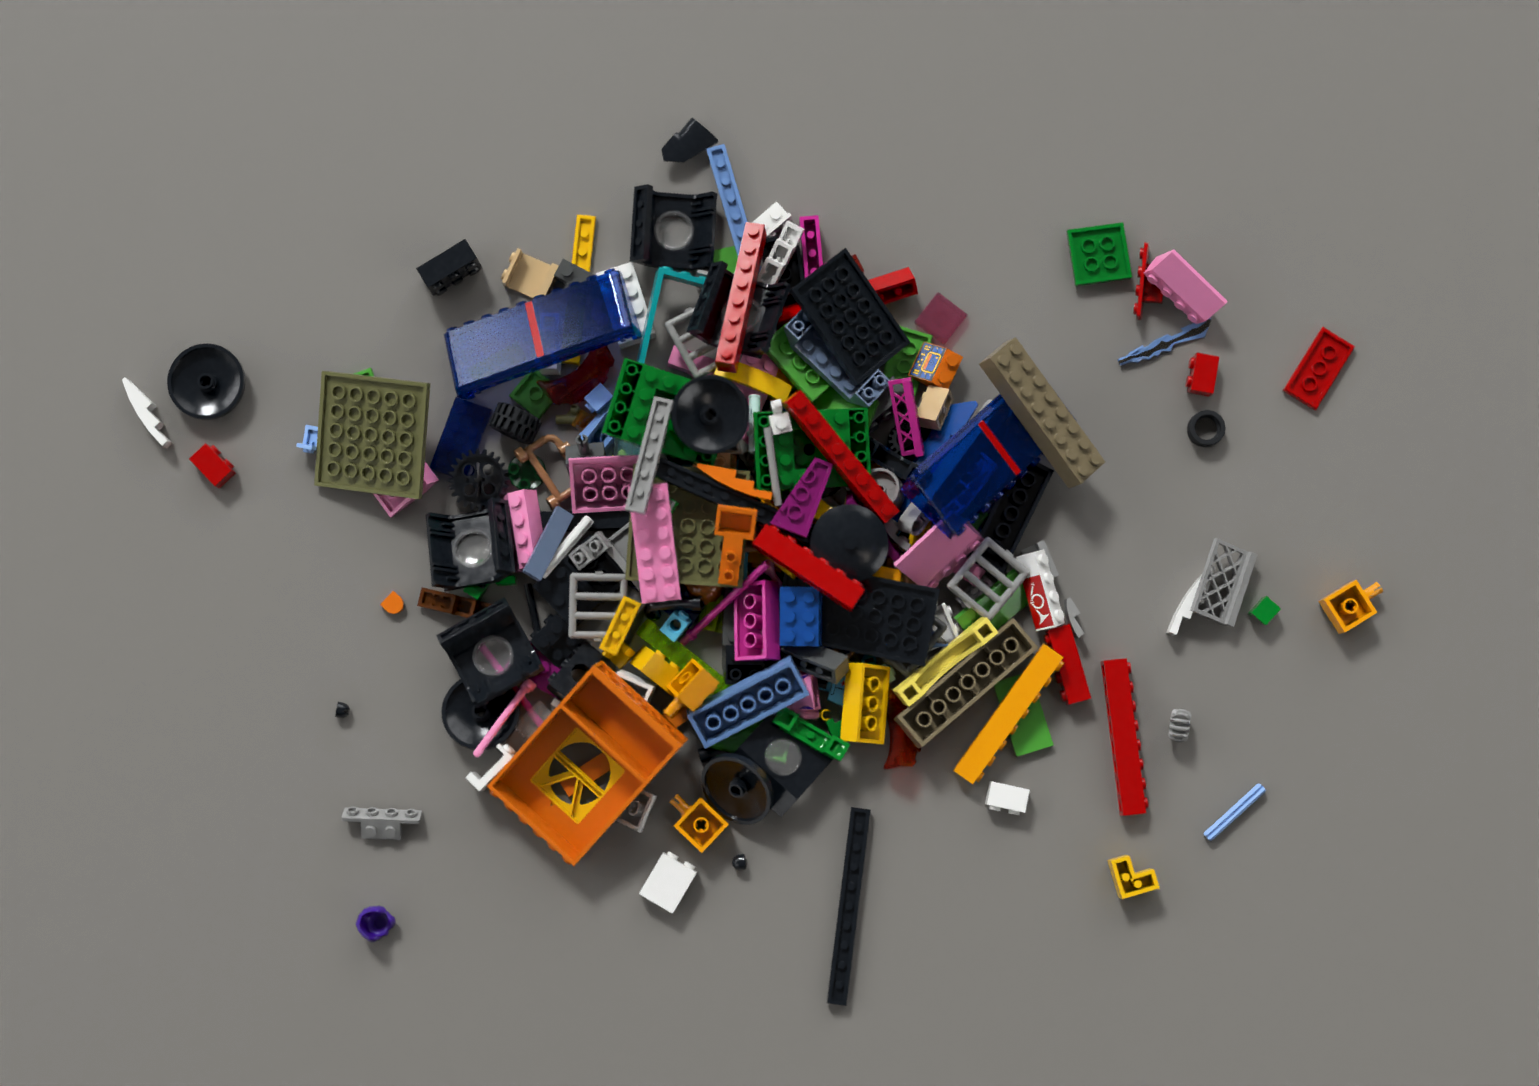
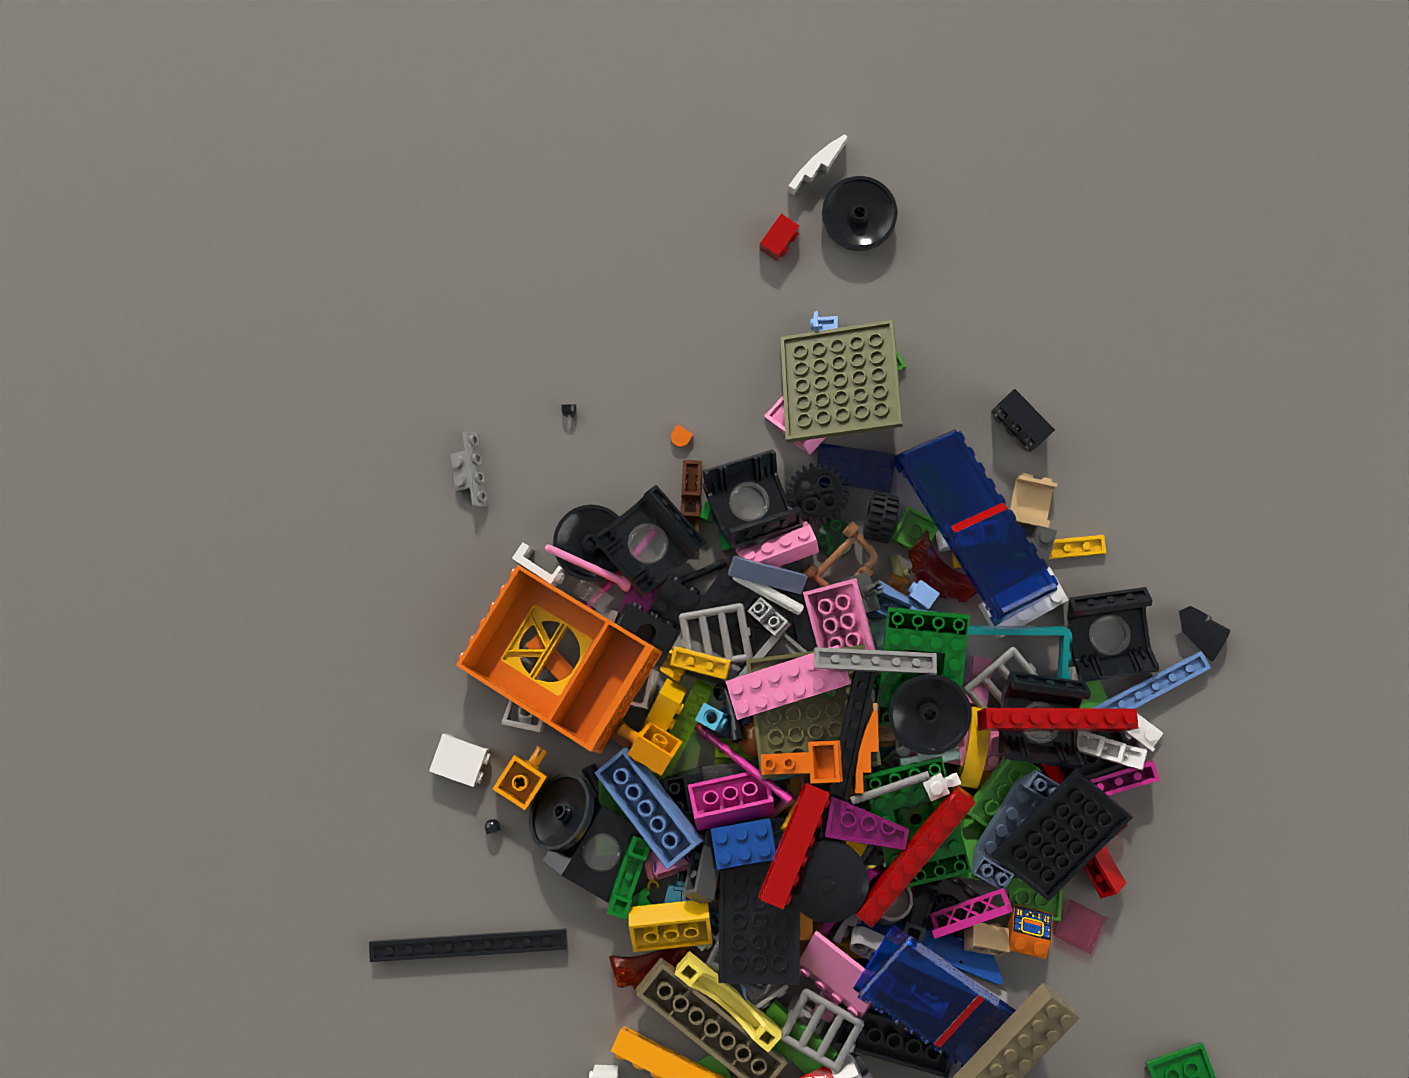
camera: 85 degrees right, 0 degrees up
(374, 923) = (371, 484): dark purple hair -> none

